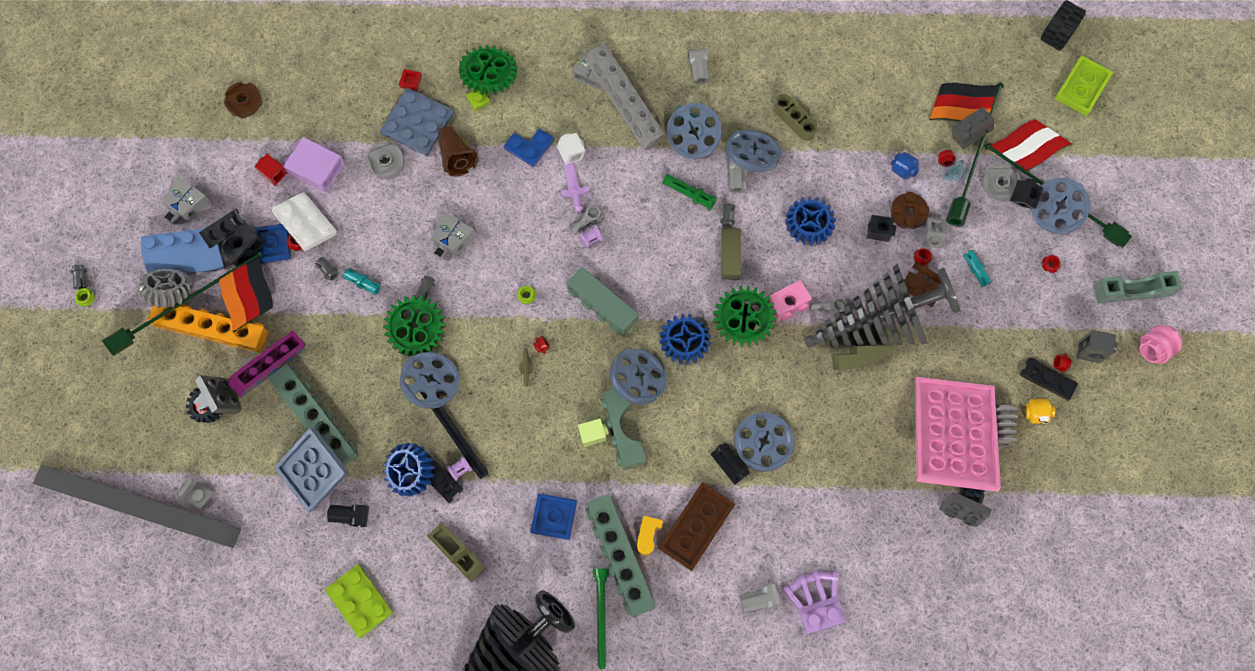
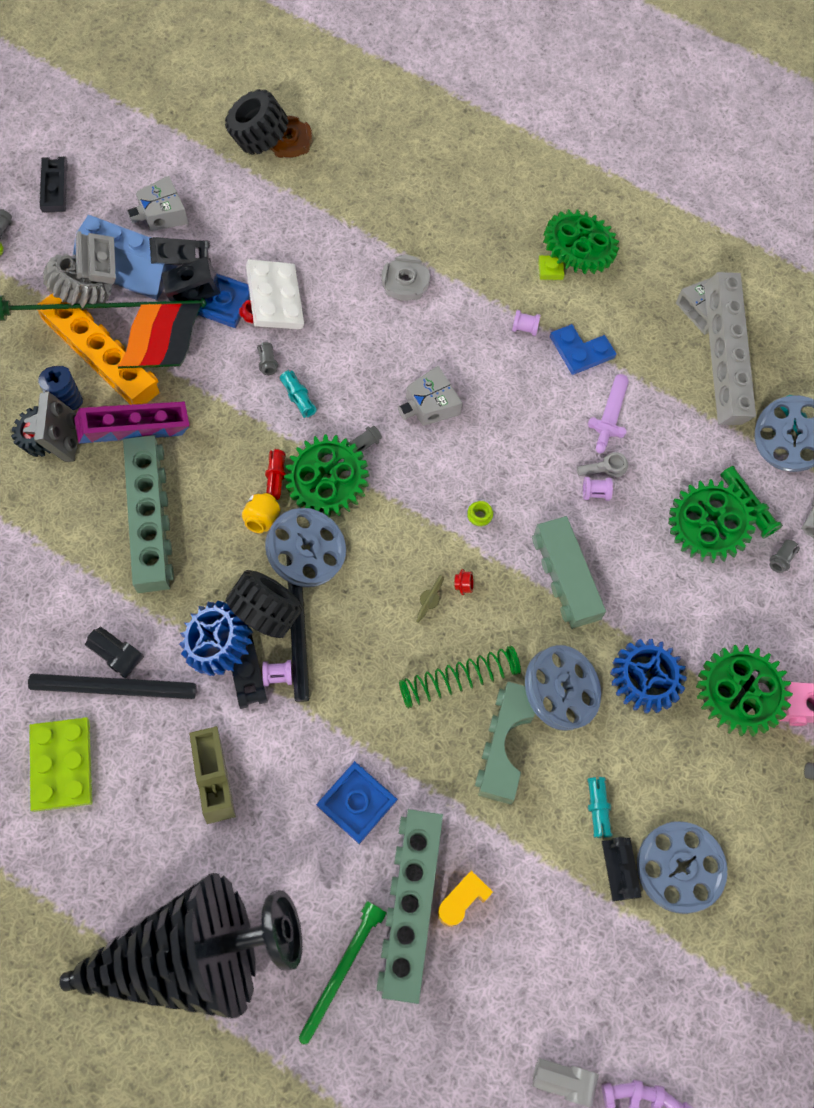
camera: 25 degrees right, 5 degrees down
(97, 226) = (53, 184): none -> black plate
(169, 265) = (95, 257): none -> light grey plate
(202, 365) = (62, 385): none -> dark blue piece
(214, 103) = (256, 121): none -> black tyre
(270, 169) = (273, 221): red brick -> none
(311, 469) = (104, 572): sand blue plate -> none
(313, 164) = (323, 240): lavender brick -> none
(360, 536) = (112, 686): none -> black axle
(380, 343) = (275, 473): none -> red axle
(387, 374) = (260, 512): none -> yellow head
(410, 79) = (485, 208): red plate -> none
(416, 122) = (466, 257): sand blue plate -> none
(426, 431) = (264, 604): none -> black tyre
(455, 152) = (491, 310): reddish brown cone -> none
(484, 148) = (526, 322): none -> lavender bush
(571, 148) = (630, 375): white brick -> none
(593, 432) = (466, 725): yellowish green brick -> none
(595, 374) = (510, 654): none -> green piece
(681, 204) = (733, 510): none -> green gear
(696, 526) = (532, 927): reddish brown plate -> none
(698, 435) = (599, 807): none -> teal pin
(730, 253) = (763, 604): olive slope -> none

